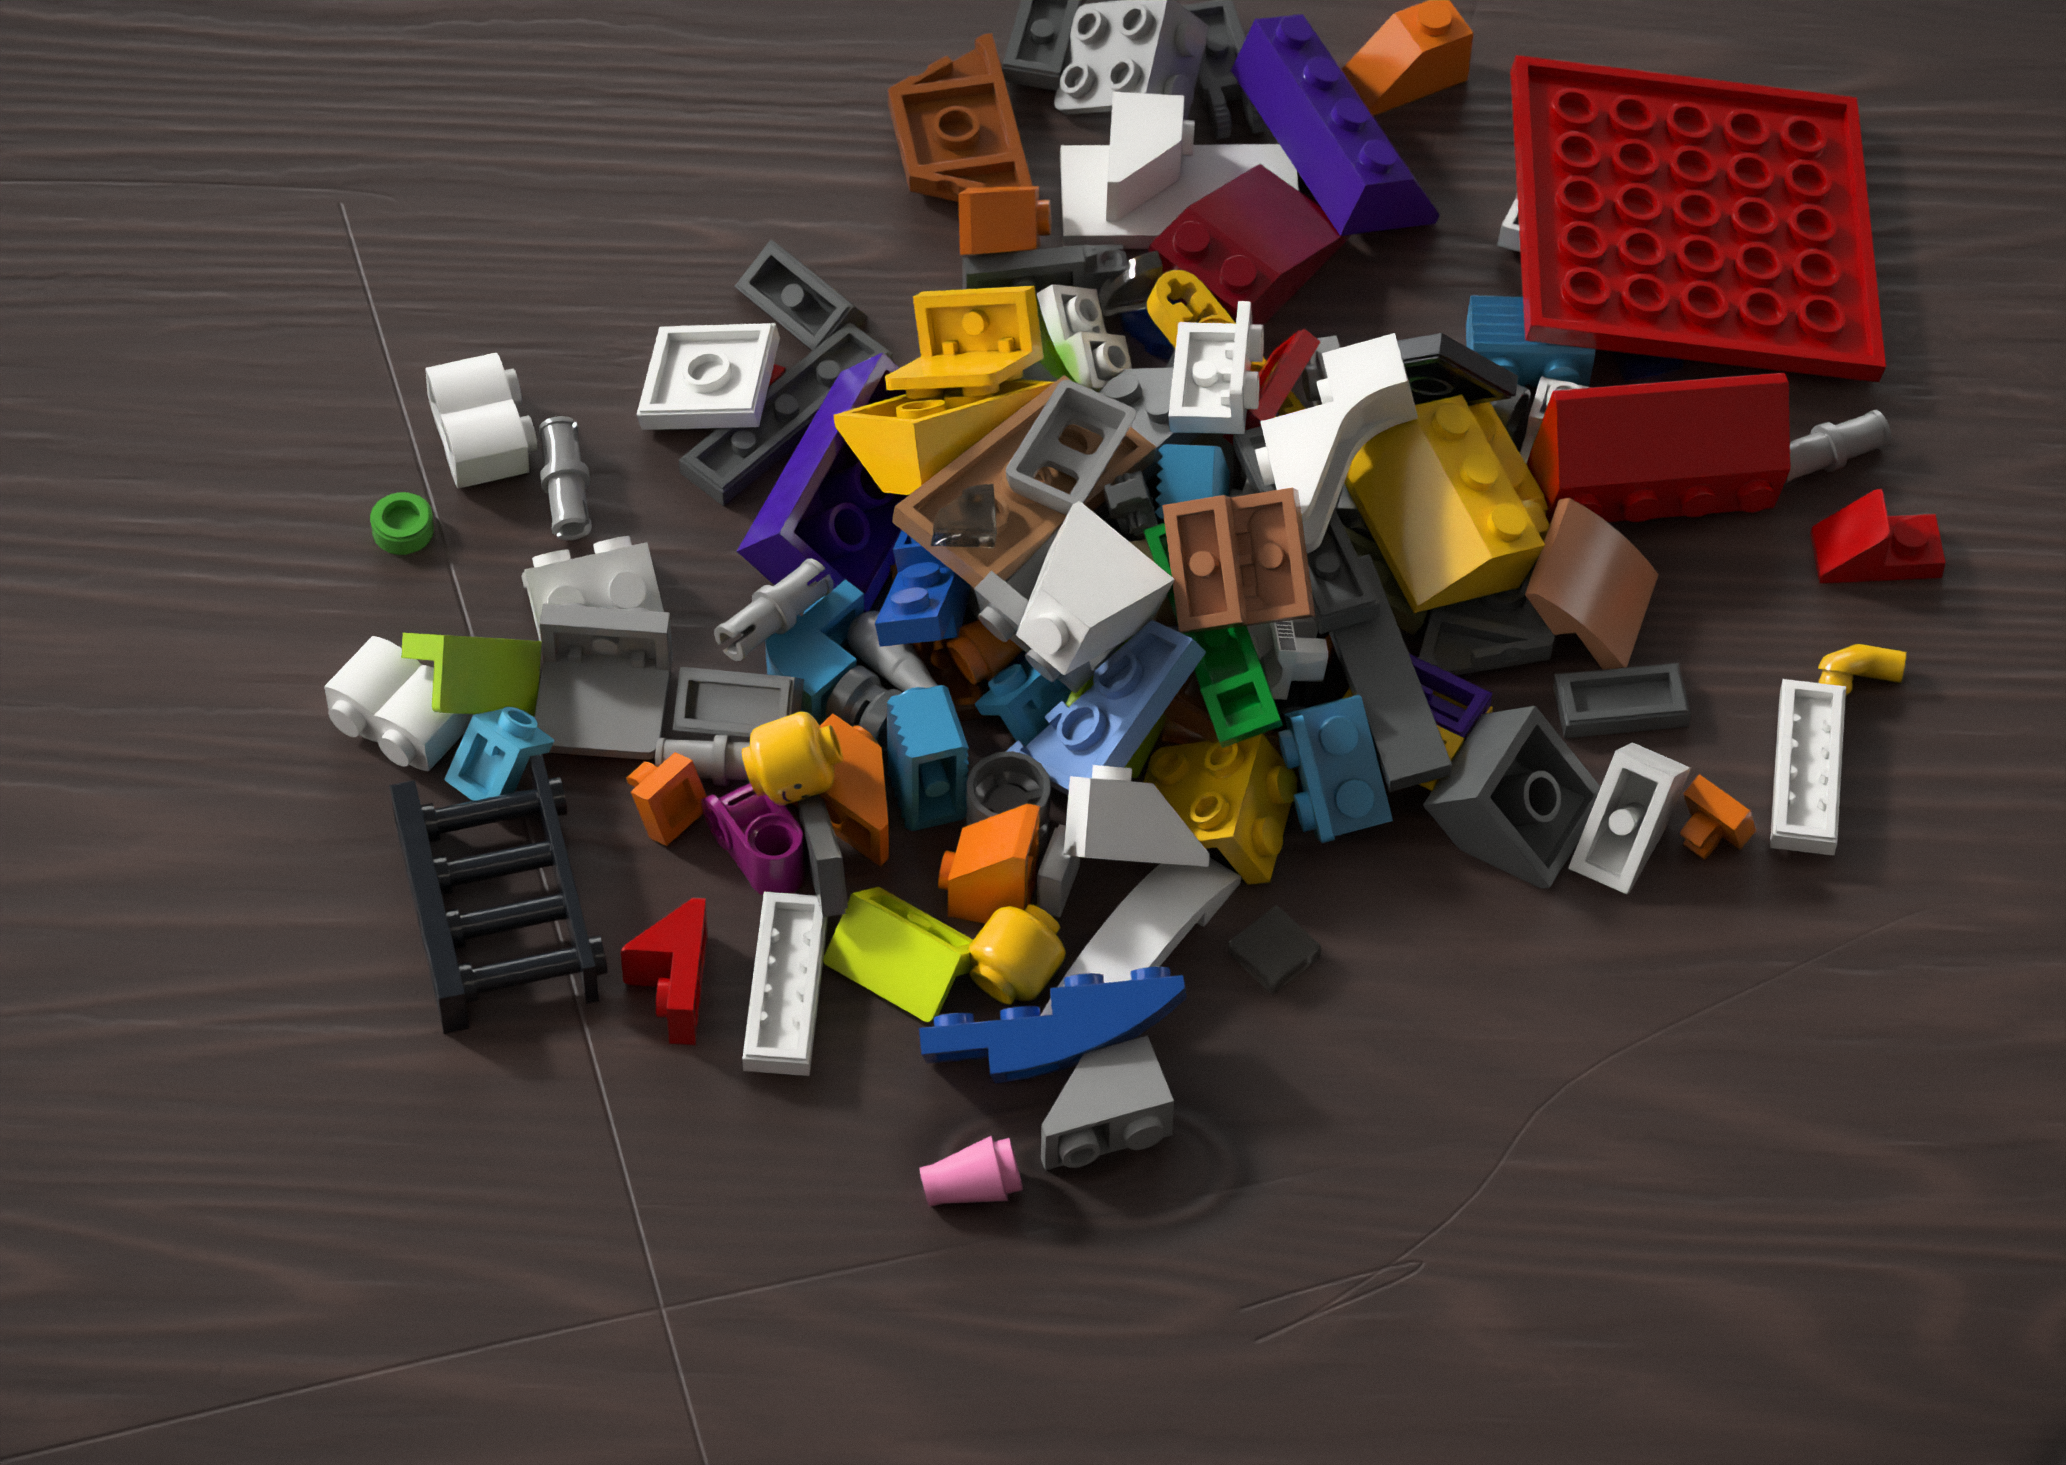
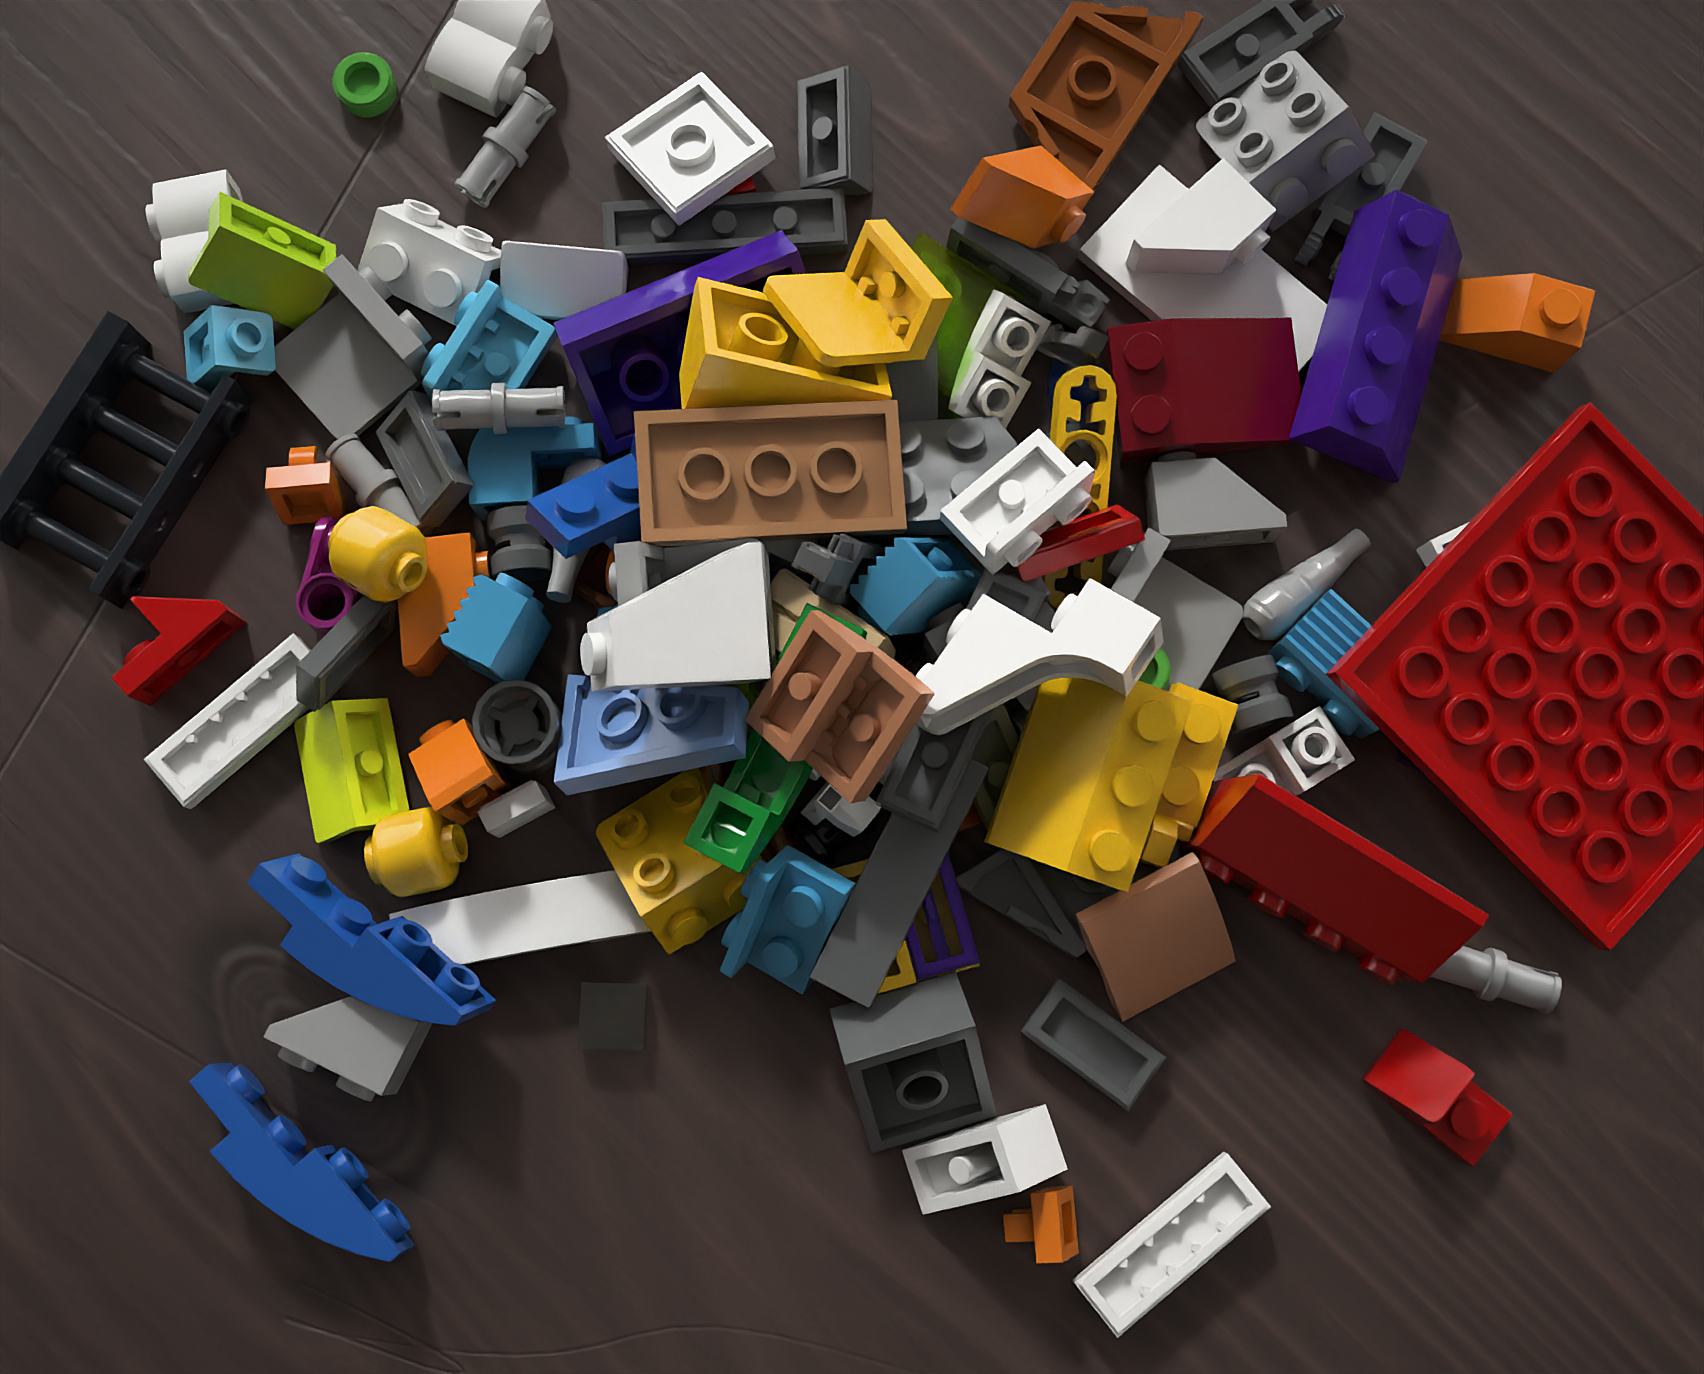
camera: 45 degrees right, 25 degrees up
(702, 530) = (560, 279): none -> white slope
(702, 598) = (489, 346): none -> medium azure bracket
(967, 520) = (673, 474): clear smoke tile -> none
(974, 1174) = (213, 1007): bright pink cone -> none
(1041, 448) = (806, 458): light grey piece -> none
(1126, 822) = (563, 843): white slope -> none
(1188, 1224) = (312, 1191): none -> blue slope
(1332, 305) = (1206, 504): none -> light grey slope
(1445, 368) = (1199, 652): black tile -> none
(1449, 306) = (1290, 596): none -> light grey piece
(1862, 661) = (1306, 1184): yellow arm -> none

